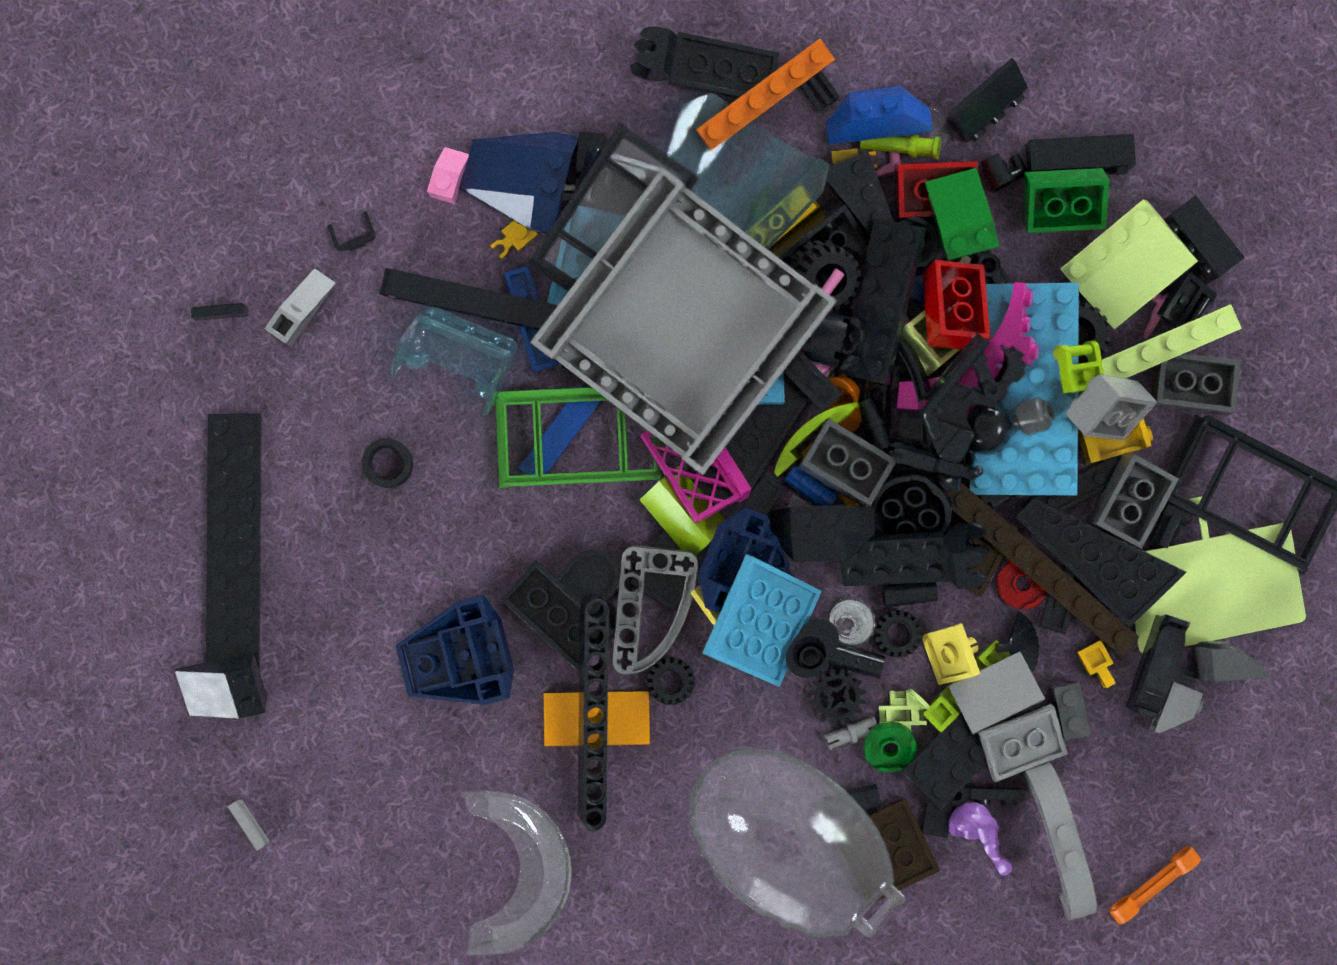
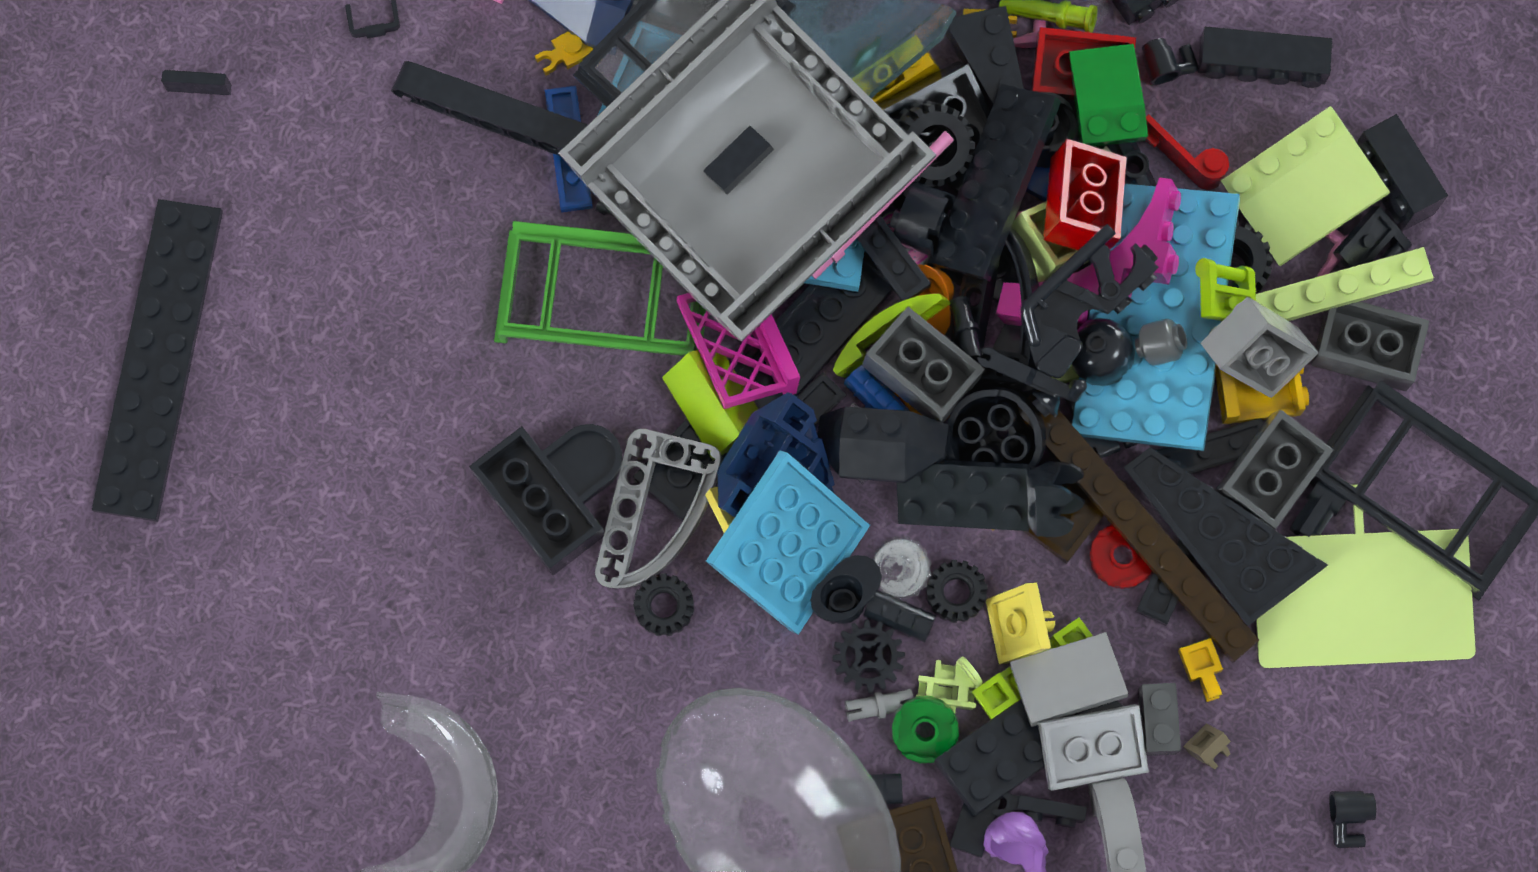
camera: 15 degrees right, 10 degrees down
(223, 687) = (109, 523): black slope -> none
(248, 824) = (107, 698): light grey tile -> none
(300, 307) = (292, 92): light grey slope -> none
(368, 456) = (370, 312): black tyre -> none
(458, 347) = (472, 166): clear light blue windscreen -> none
(459, 656) = (407, 530): dark blue wedge -> none
(560, 434) = (582, 286): blue tile -> none
(594, 725) = (562, 638): black beam -> none
(626, 719) = (563, 638): light orange tile -> none
(673, 317) = (738, 160): none -> black tile
(909, 594) = (979, 543): black axle -> none
(1023, 640) = (1115, 621): black hand -> none
(1045, 260) = (1204, 170): none -> red door
(1065, 200) = (1238, 102): green brick -> none
(1109, 723) = (1207, 745): none -> dark tan tile
(1160, 666) = (1281, 681): black piece -> none
(1178, 708) = (1296, 736): light grey slope -> none
(1222, 663) = (1364, 685): dark grey slope -> none
(1223, 756) = (1350, 808): none -> black piece

